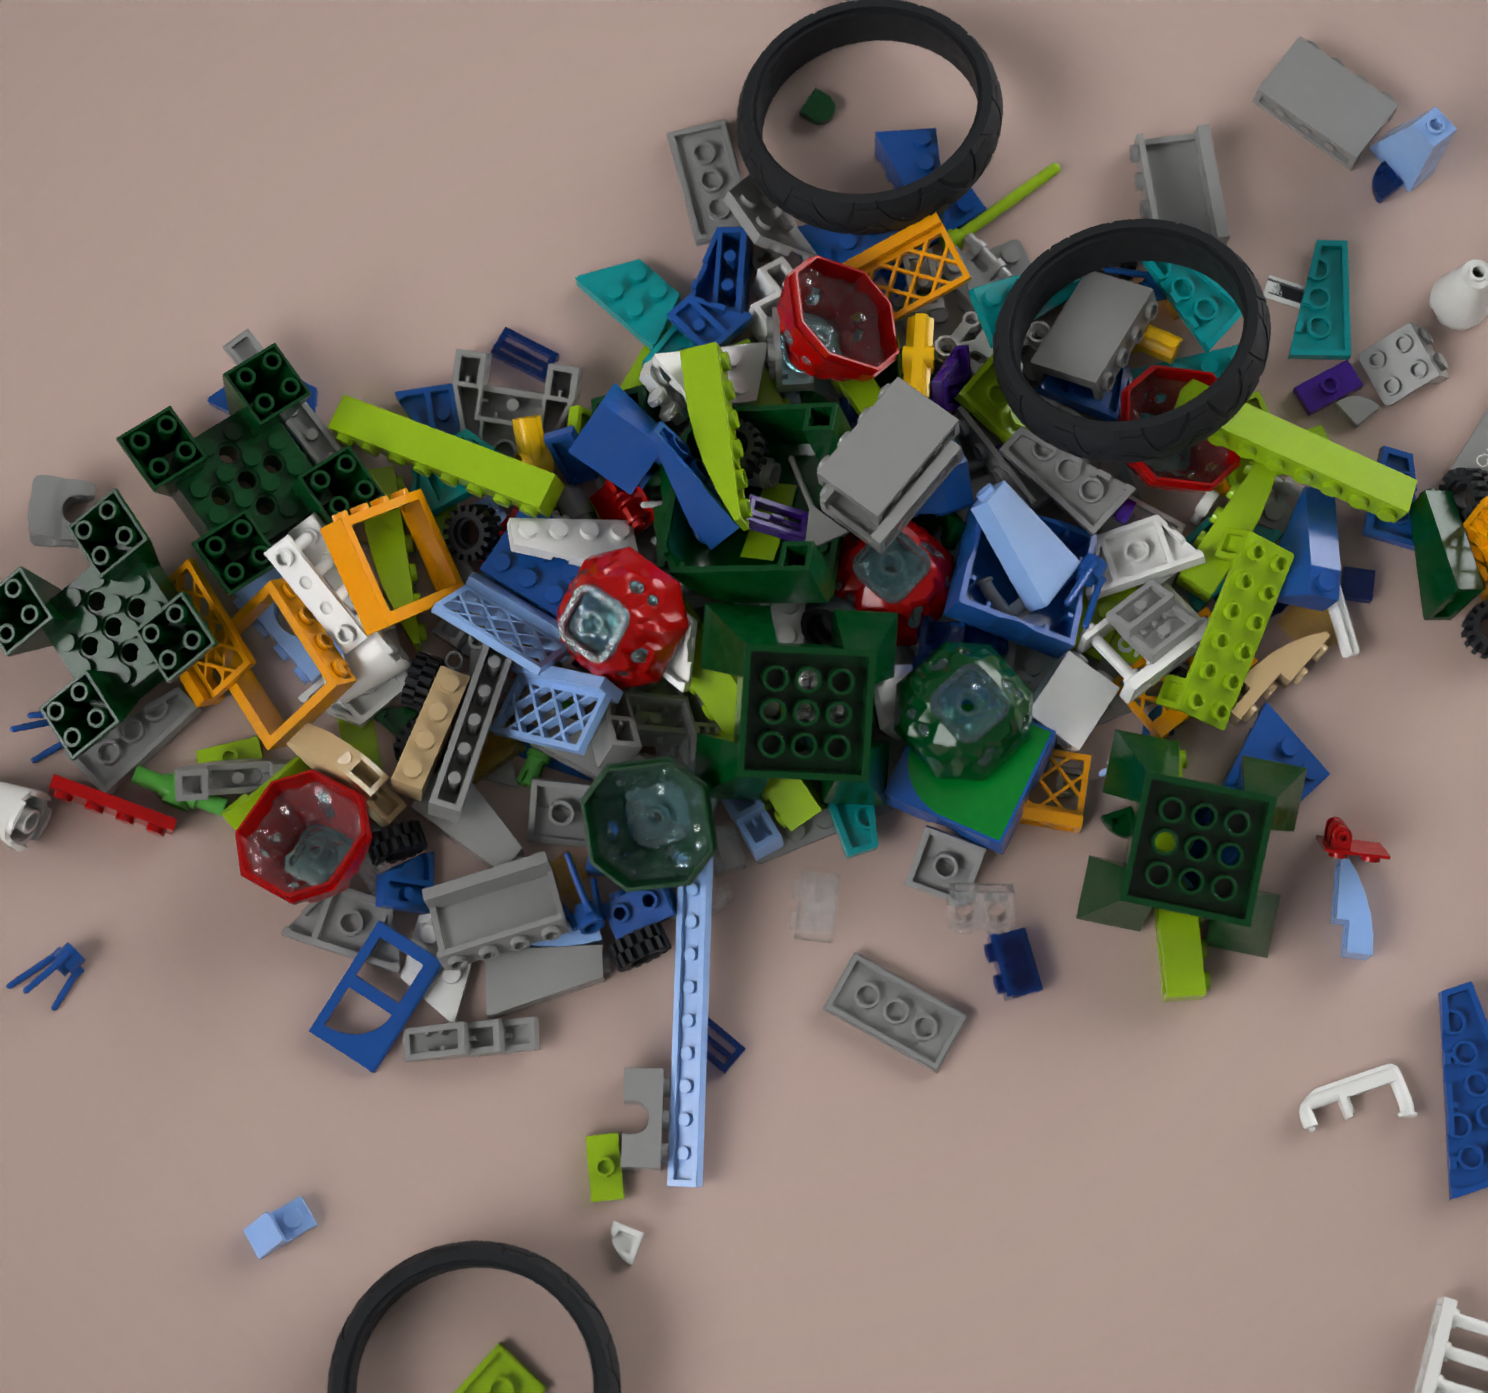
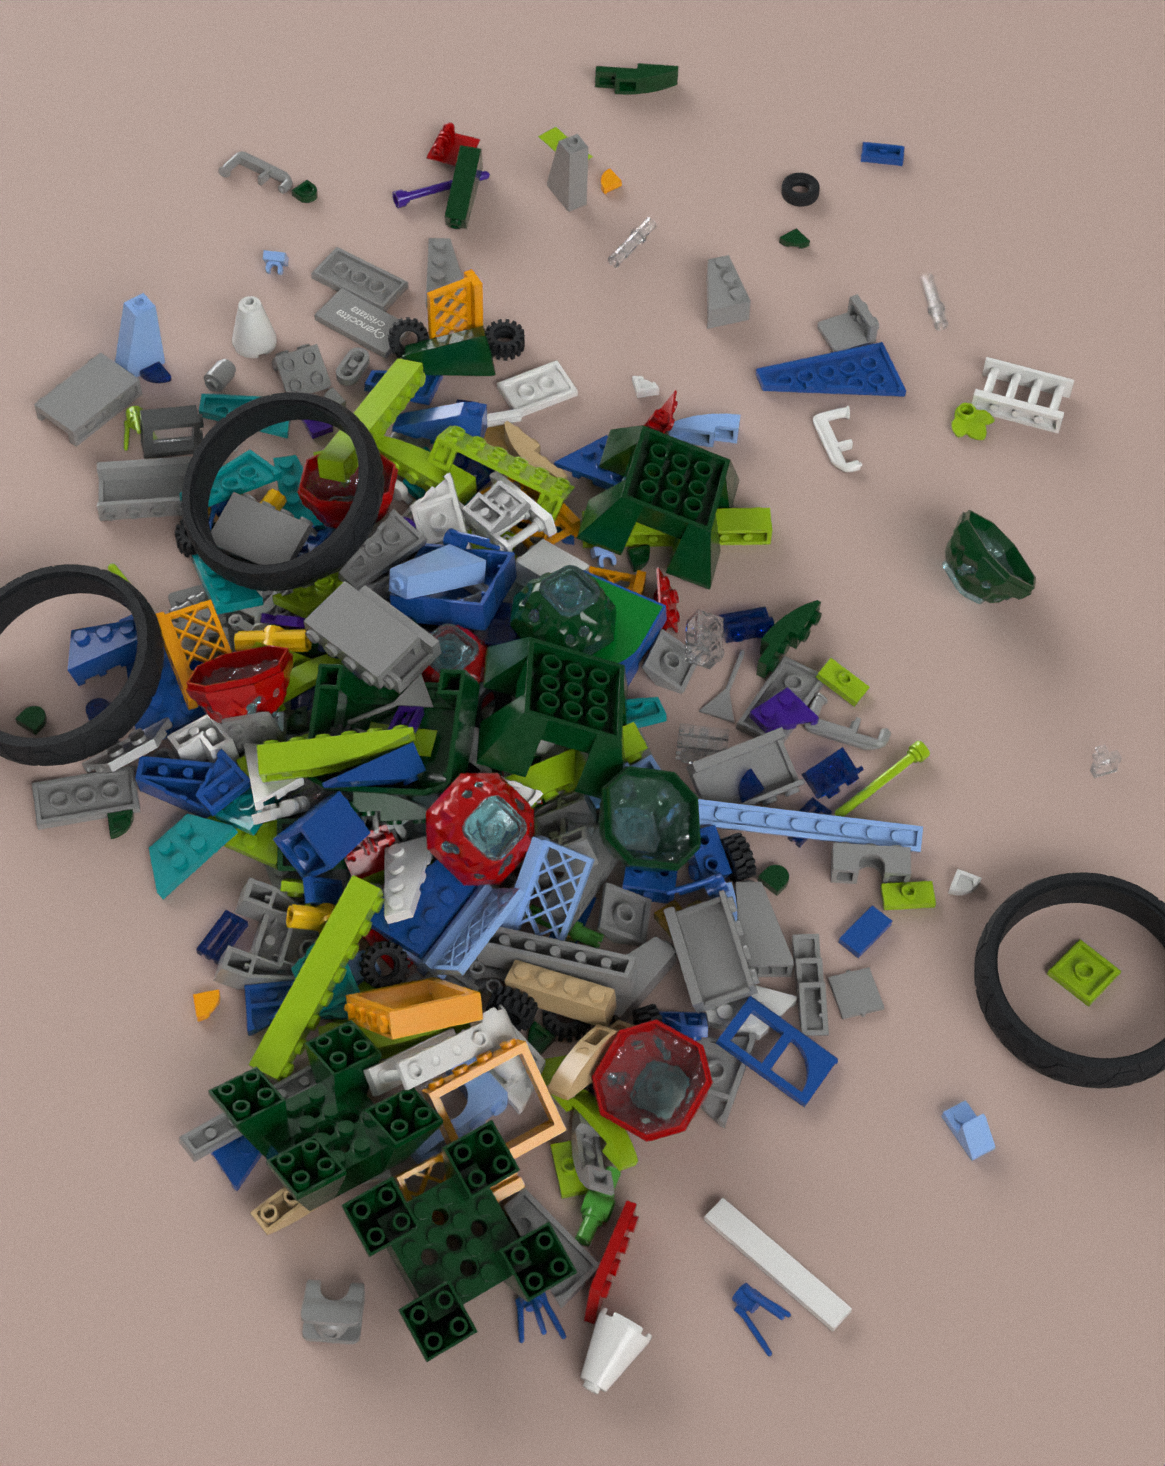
camera: 90 degrees left, 20 degrees down
(112, 995) = (778, 1264): none -> white tile
(435, 345) = (206, 1003): none -> light orange tile
(465, 1097) = (855, 993): none -> light grey piece
(550, 1111) = (865, 931): none -> blue tile
(624, 999) = (774, 878): none -> dark green tile
(676, 224) = (120, 822): none -> dark green tile
(749, 964) = (749, 786): none -> clear blue tile
(764, 960) = (719, 774): none -> light grey panel
(778, 1074) = (831, 773): none -> clear blue bracket
(818, 1186) = (917, 753): none -> lime piece
(834, 178) = (95, 707): none -> clear blue tile
(847, 1089) = (843, 734): none -> light grey piece
(869, 1010) = (783, 711): none -> dark purple wing
(887, 933) = (721, 704): none -> light grey piece
(927, 1091) = (842, 682): none -> lime plate
(1009, 1025) = (787, 633): none -> dark green slope
(1036, 856) = (669, 597): none -> red hinge
(1122, 1296) = (986, 562): none -> dark green rock
(1266, 206) = (170, 431): none -> dark grey window
(1296, 165) = (133, 421): none -> lime plant
(1383, 260) = (219, 375): none -> light grey brick
(1403, 1299) = (971, 421): none -> lime plate
(1409, 679) = (537, 388): none -> white tile
(1420, 428) = (352, 366): none -> light grey plate
(1428, 825) = (643, 387): none -> white tile

